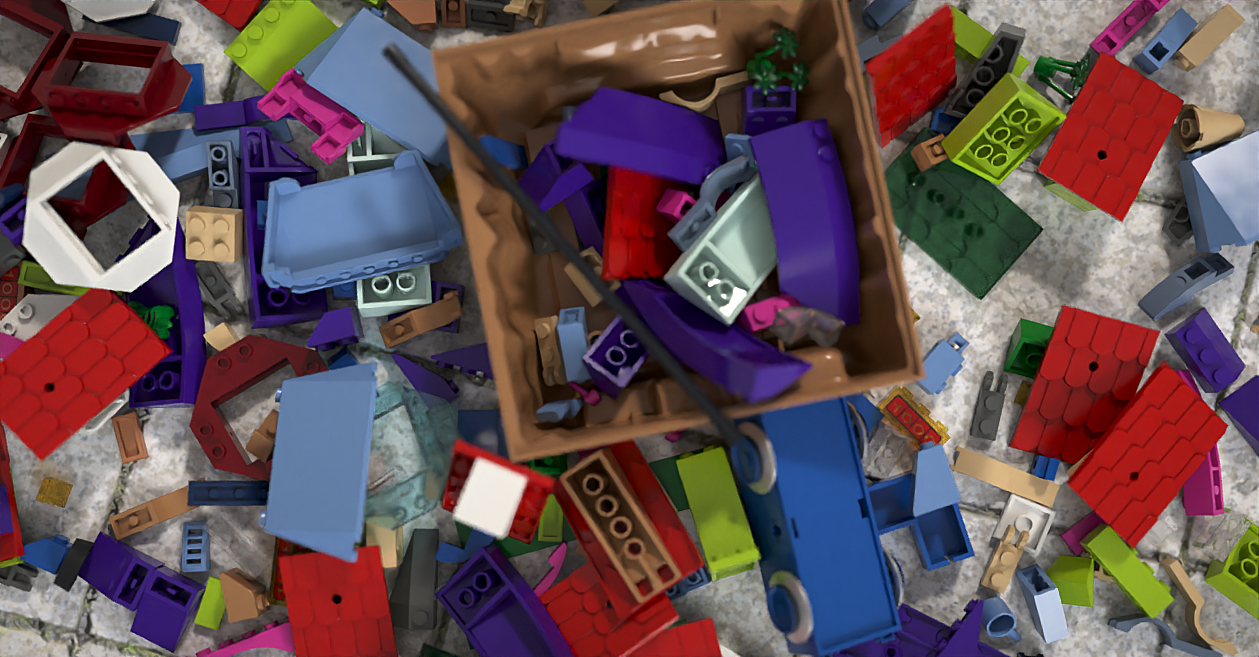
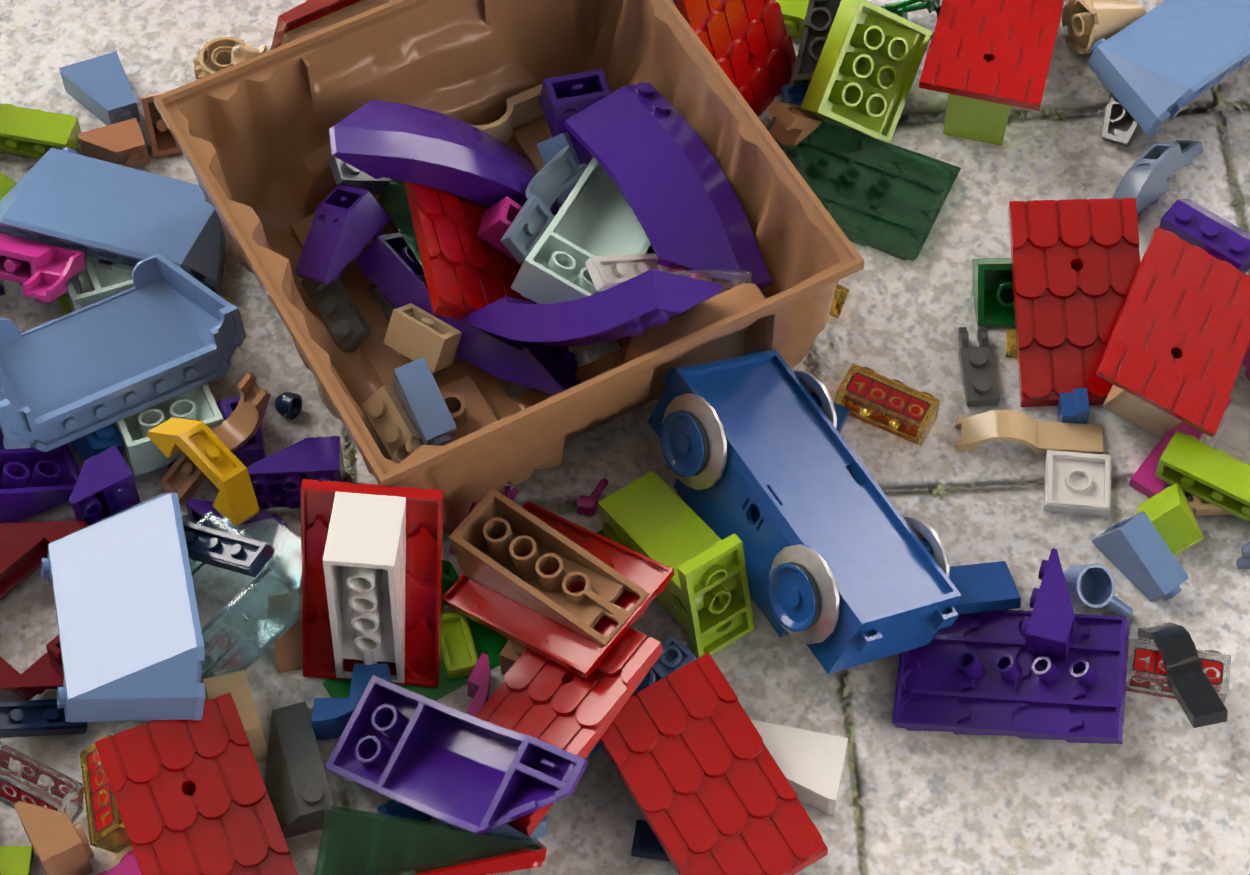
camera: 15 degrees left, 30 degrees down
(263, 439) = (37, 629): medium nougat slope -> none
(399, 432) = (226, 549): none -> dark blue tile
(409, 342) = (236, 494): none -> yellow slope
(506, 153) = (270, 225): blue tile -> none
(616, 357) = (484, 393): dark purple slope -> none
(723, 424) = (634, 365): black piece -> none
(751, 290) = (613, 270): none -> white tile
(765, 73) = (560, 61): dark green plant -> none
(884, 449) = (864, 431): clear brick -> none
(924, 593) = (984, 587): none -> blue tile
(931, 480) = (934, 437): medium blue slope -> none
(934, 532) = (949, 488): blue piece -> none
(941, 363) = (893, 337): medium blue brick -> none
(1004, 560) = (1070, 524): tan hinge -> none

